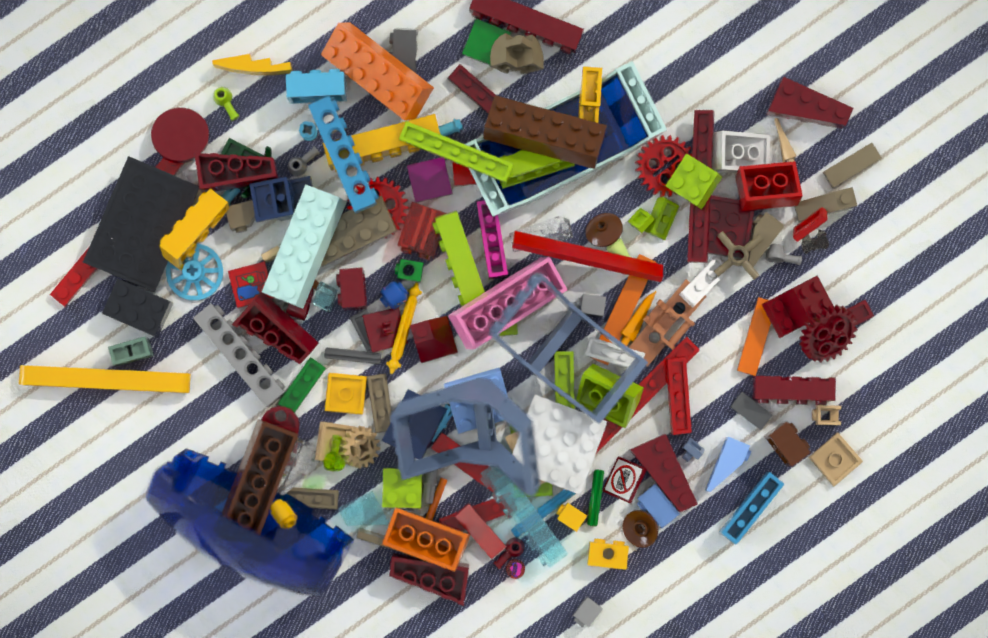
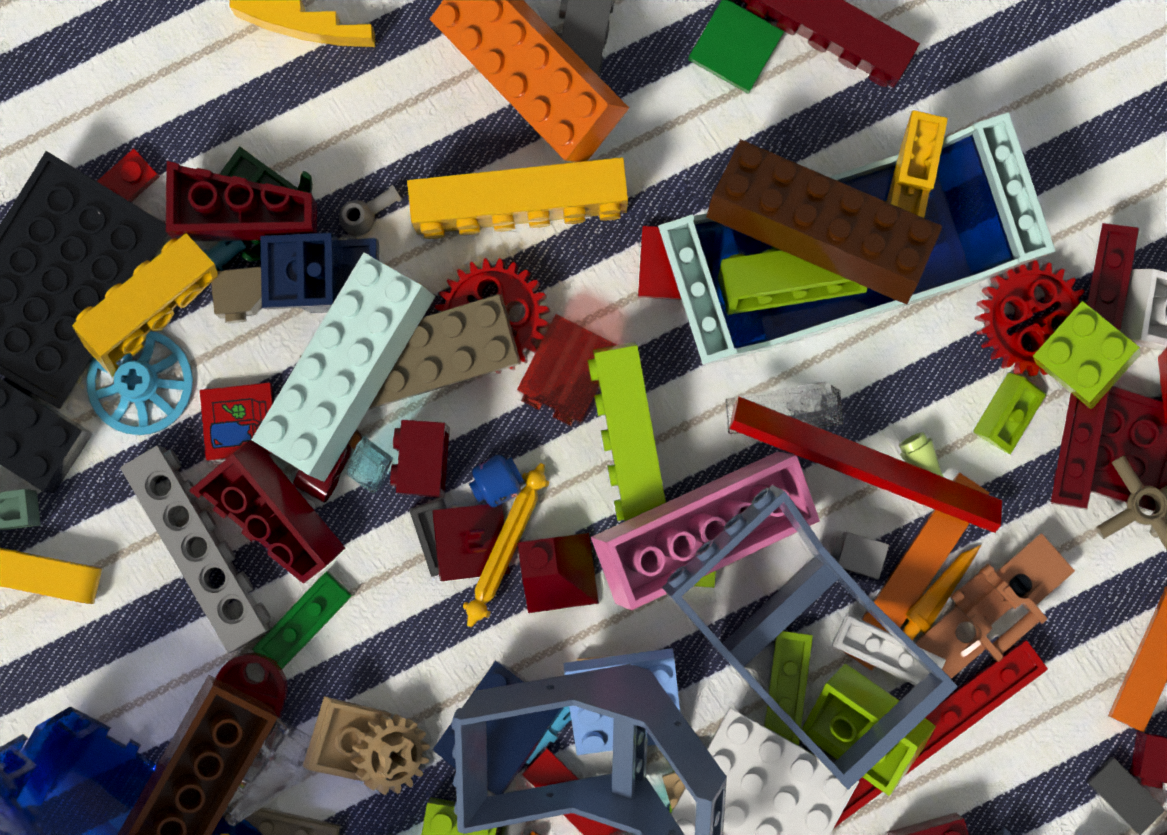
camera: 15 degrees right, 0 degrees up
(180, 134) = (149, 125): dark red tile -> none
(225, 101) = (244, 80): lime bar -> none
(270, 255) = (281, 372): tan tile -> none
(306, 136) = (396, 155): medium azure bush -> none
(315, 86) = (412, 76): medium azure brick -> none
(332, 460) = (335, 775): clear neon green bar -> none
(345, 393) = (381, 648): yellow tile -> none
(352, 355) = (404, 580): dark grey axle -> none
(358, 201) = (408, 119): dark azure brick -> none
(380, 401) = (441, 674): dark tan tile -> none
(418, 270) = (546, 449): green brick -> none
(429, 179) = (594, 278): magenta tile -> none
(451, 127) = (647, 189): medium azure pin -> none
(456, 152) = (653, 234): lime plate -> none
(472, 87) = (698, 123): dark red tile -> none
(492, 242) = (692, 410): dark pink brick -> none
(517, 54) = (789, 72): dark tan brick -> none
(608, 234) = (905, 430): reddish brown dish -> none
(641, 220) = (973, 411): lime plate -> none
(678, 395) = (996, 748): red plate -> none
(702, 283) = (1070, 545): white tile -> none

